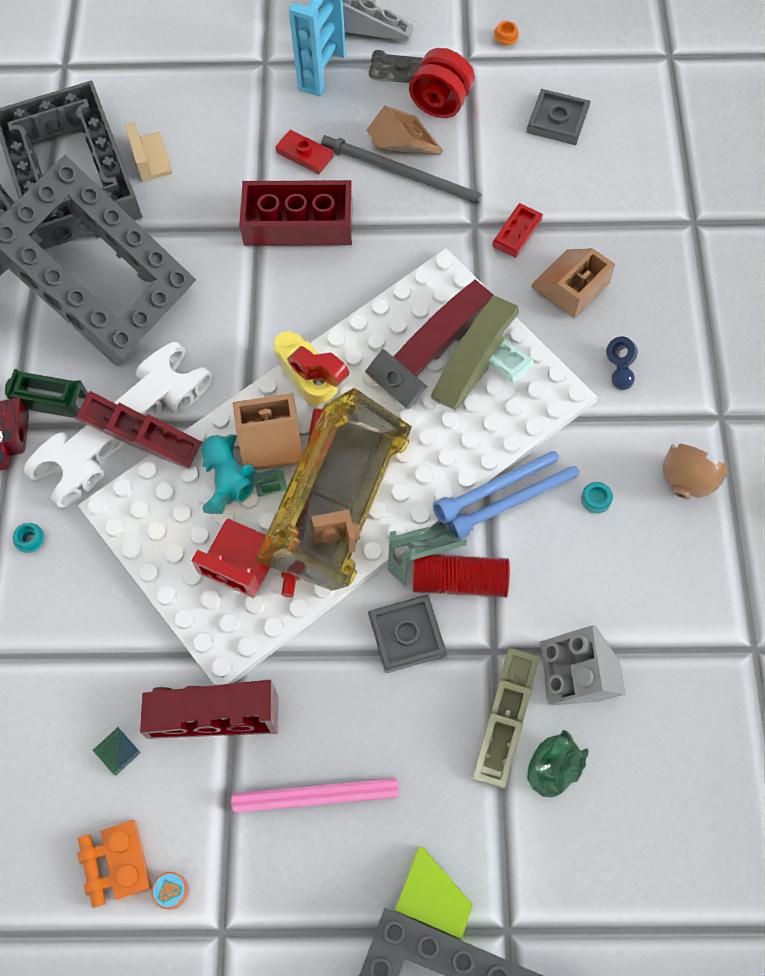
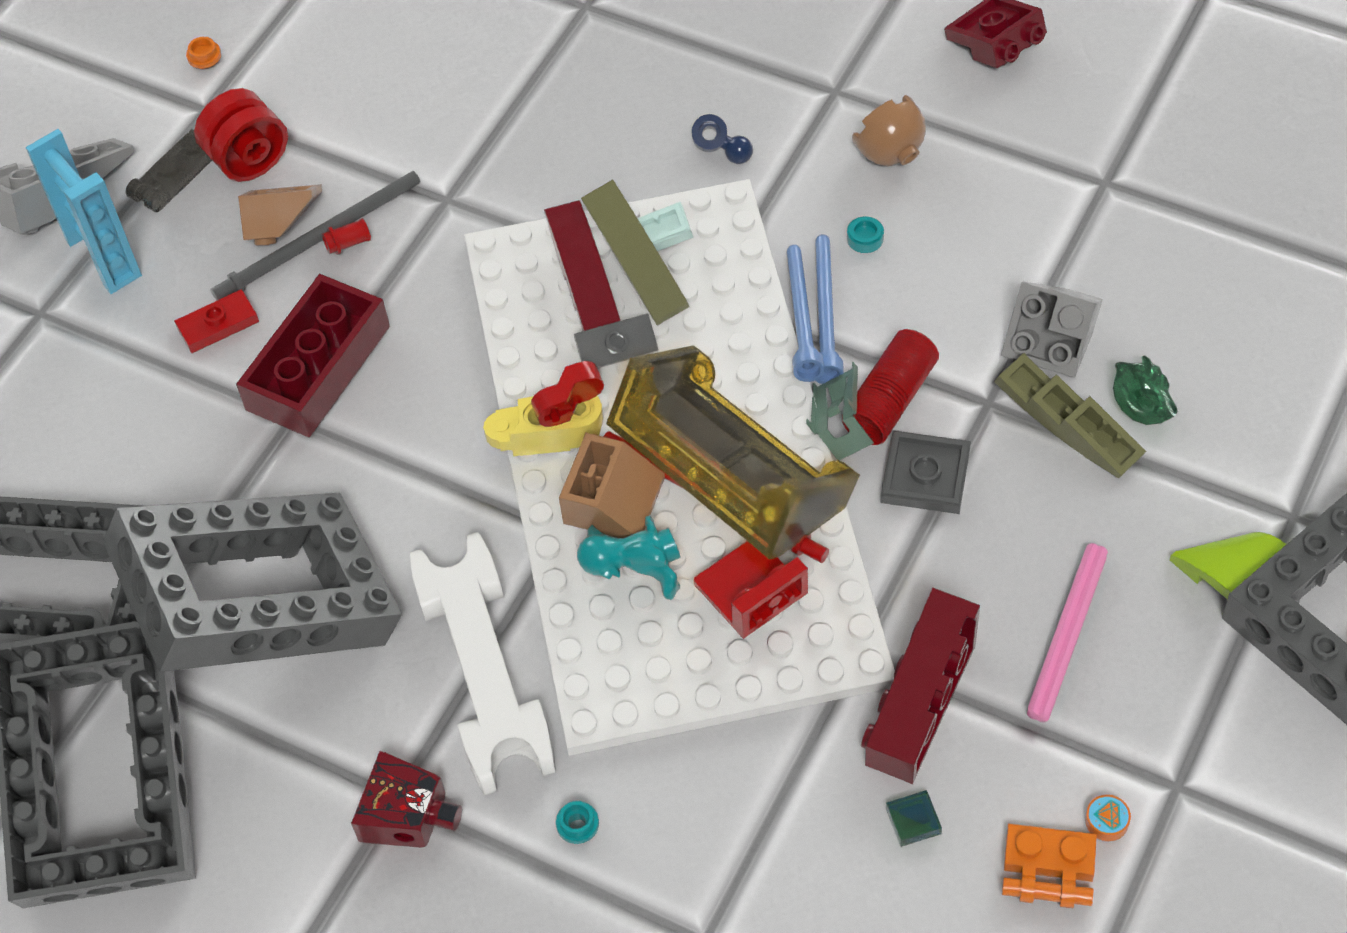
camera: 60 degrees left, 10 degrees down
(46, 403) = (402, 730): dark green window -> none
(138, 430) = (516, 630): dark red slope -> none
(148, 153) = (87, 486): tan panel -> none
(269, 482) = (675, 513): clear green tile -> none
(334, 526) = (783, 455): medium nougat bracket -> none
(406, 184) = (346, 236): none -> red pin
(517, 230) = (488, 158): red plate -> none
(558, 116) = (358, 58): dark grey tile -> none
(575, 279) = (592, 131): medium nougat slope -> none

